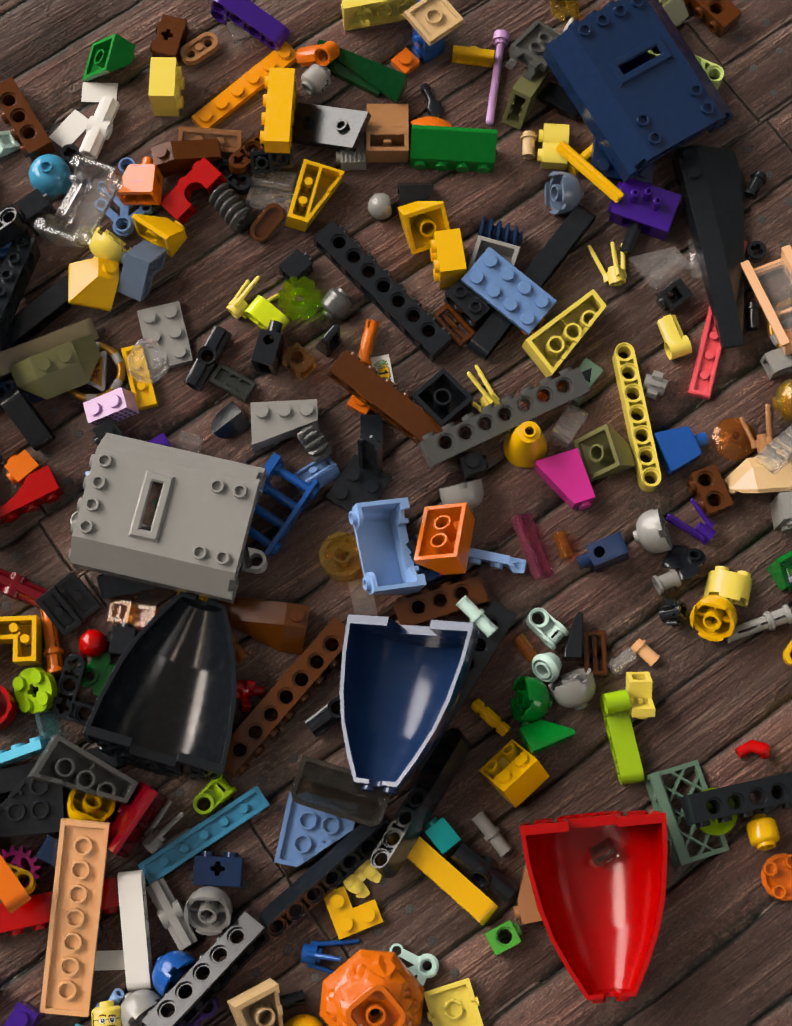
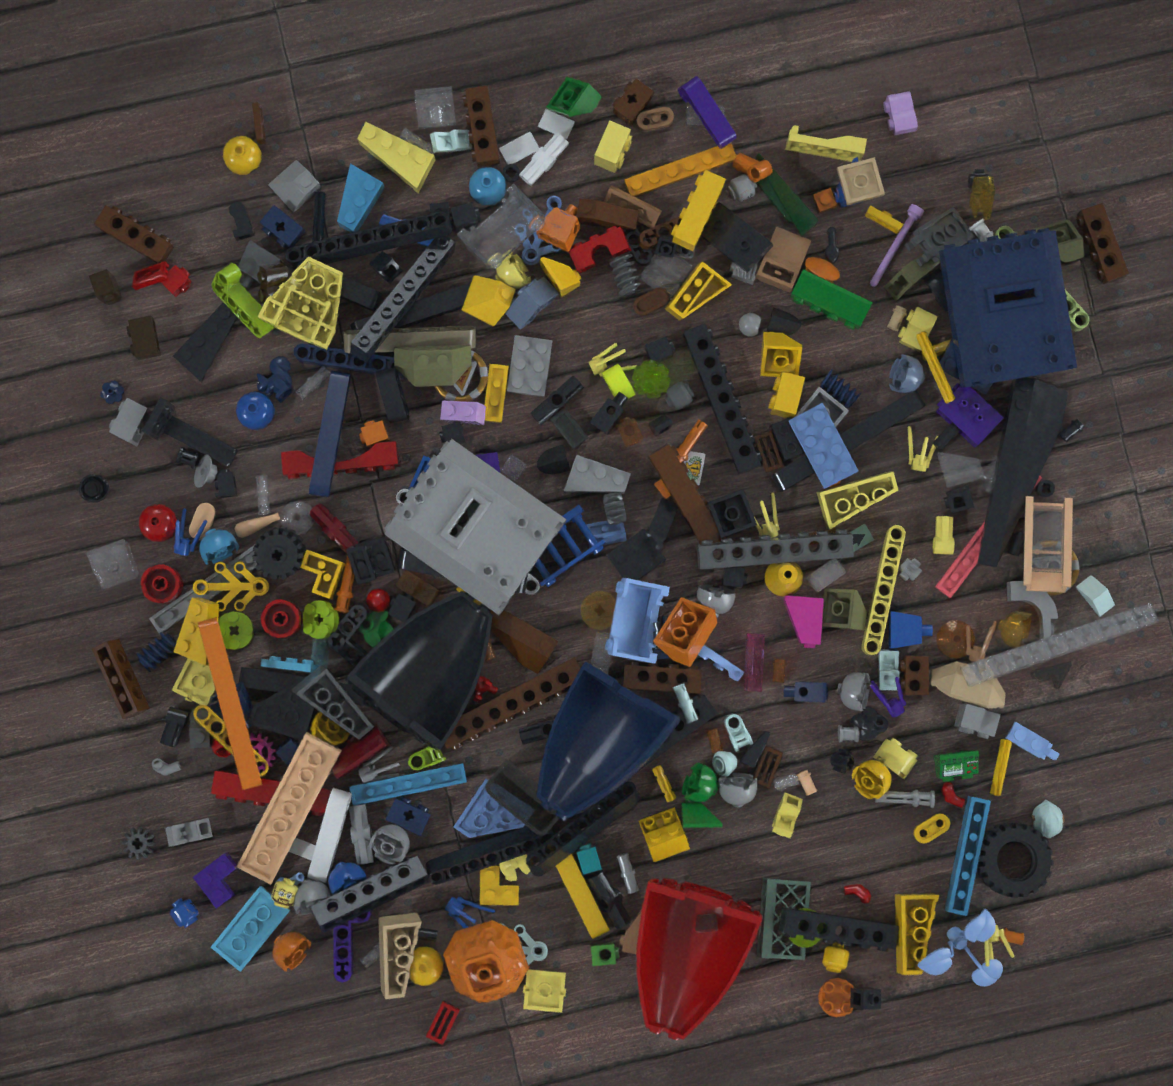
camera: 20 degrees right, 10 degrees up
(147, 361) = (507, 385): clear hat -> none
(619, 728) = (759, 840): lime beam -> none
(678, 497) = (888, 668): none -> light aqua slope

